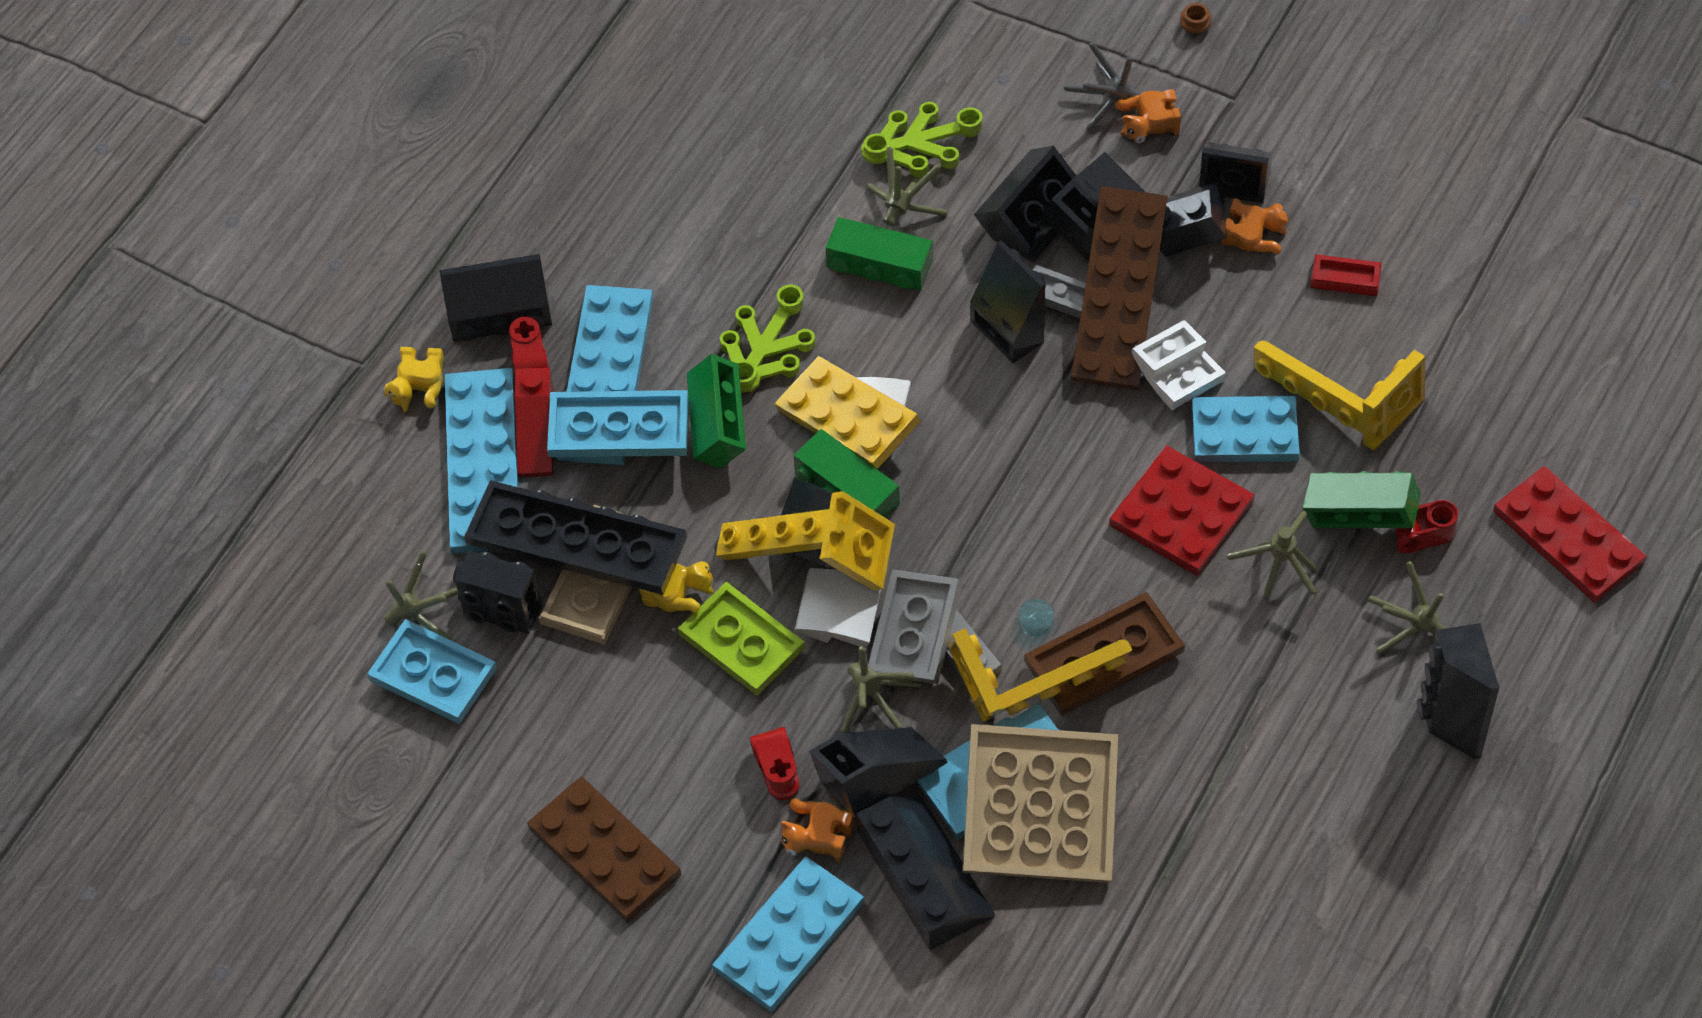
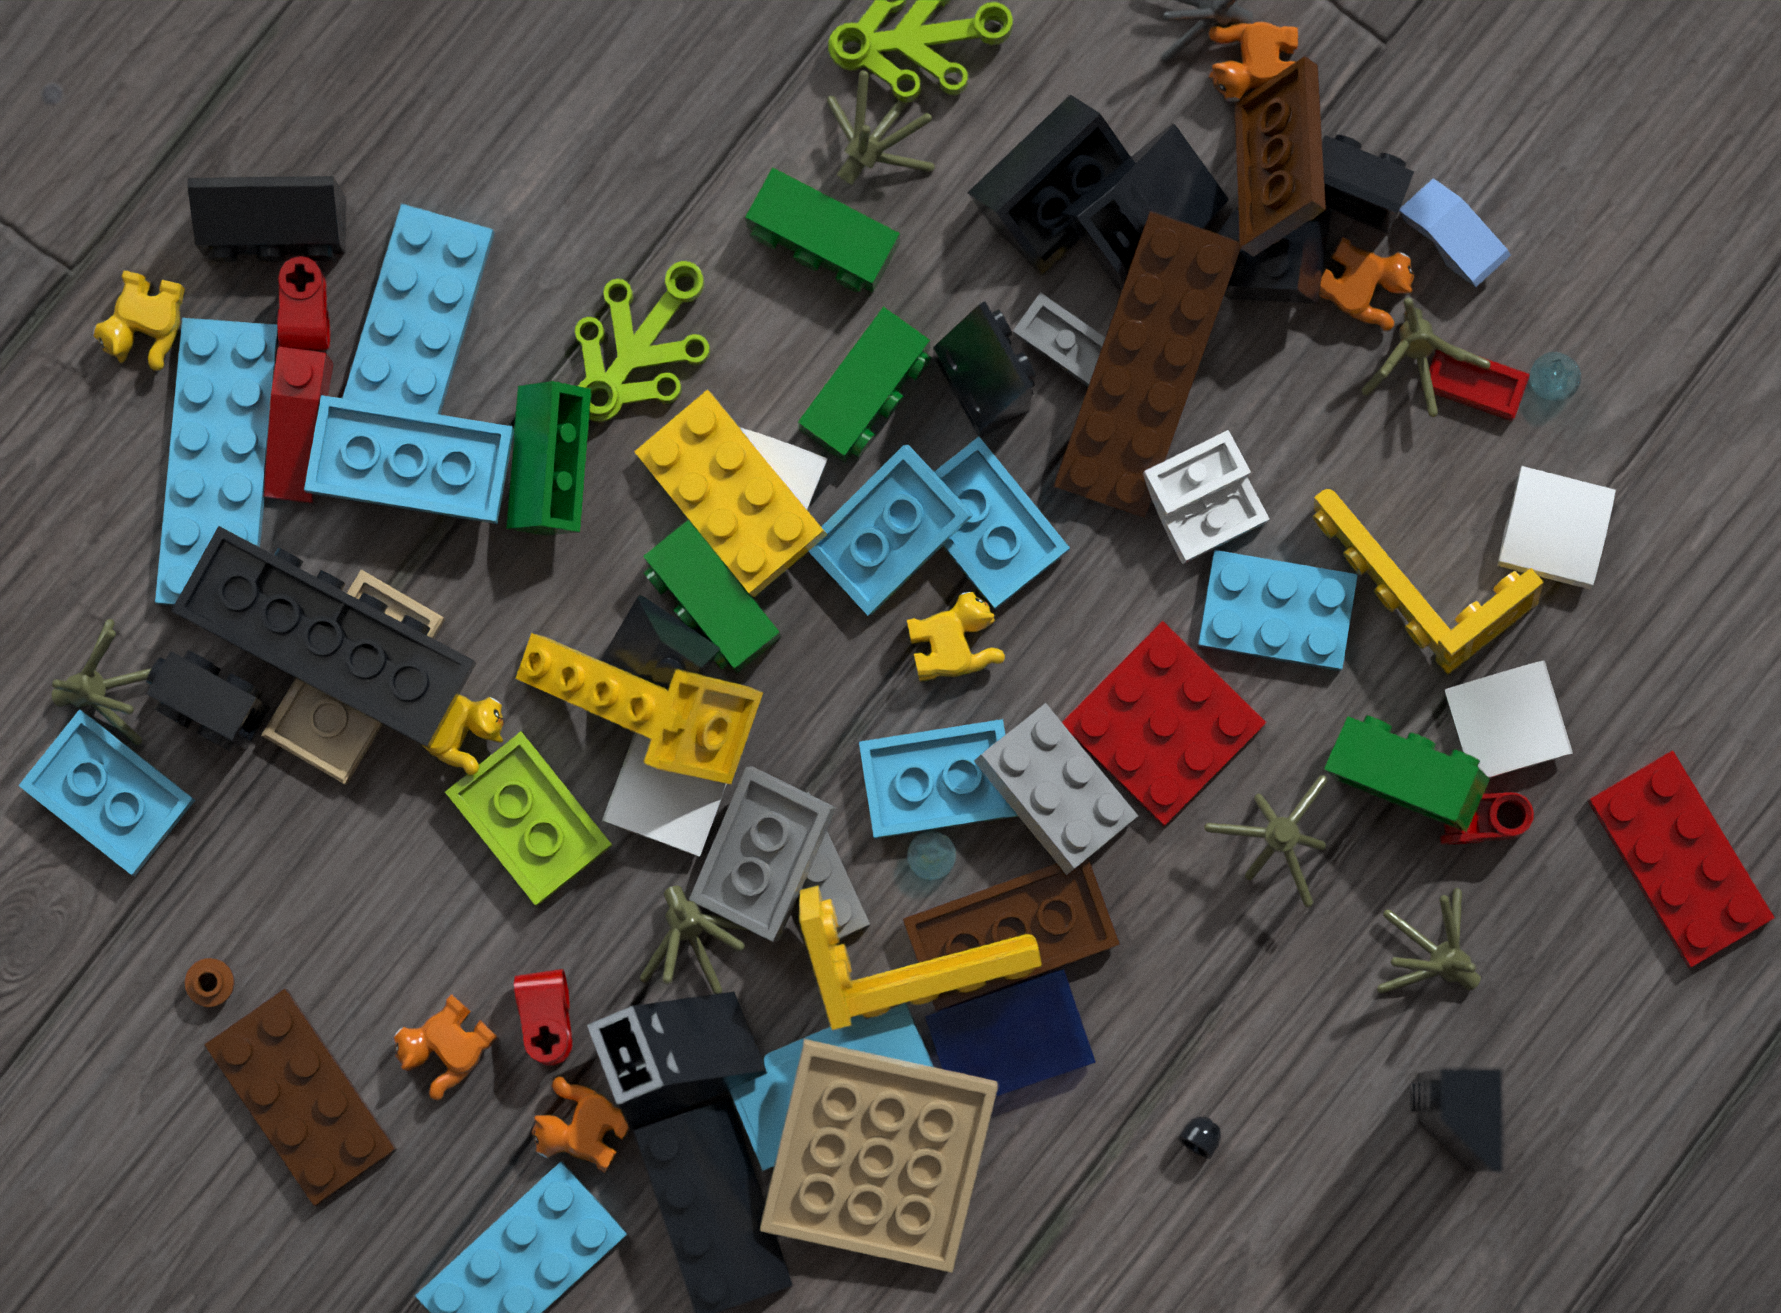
camera: 10 degrees right, 25 degrees up
(525, 791) = (224, 986): none -> dark orange plate
(709, 789) = (443, 1035): none -> orange animal
(928, 337) = (866, 386): none -> green brick
(962, 415) = (889, 529): none -> medium azure plate
(1016, 483) = (949, 646): none -> yellow animal
(1029, 406) = (1007, 536): none -> medium azure plate
(1030, 566) = (931, 780): none -> medium azure plate
(1116, 553) = (1055, 788): none -> light grey plate
(1132, 709) = (1014, 1034): none -> clear blue plate
(1180, 148) = (1279, 156): none -> reddish brown plate
(1278, 767) = (1201, 1136): none -> black hinge
(1301, 251) = (1417, 343): none -> olive plant
(1313, 188) = (1456, 231): none -> light blue slope
(1399, 261) = (1555, 376): none -> clear light blue tile
(1430, 460) = (1509, 719): none -> white slope
(1433, 338) = (1556, 527): none -> white slope

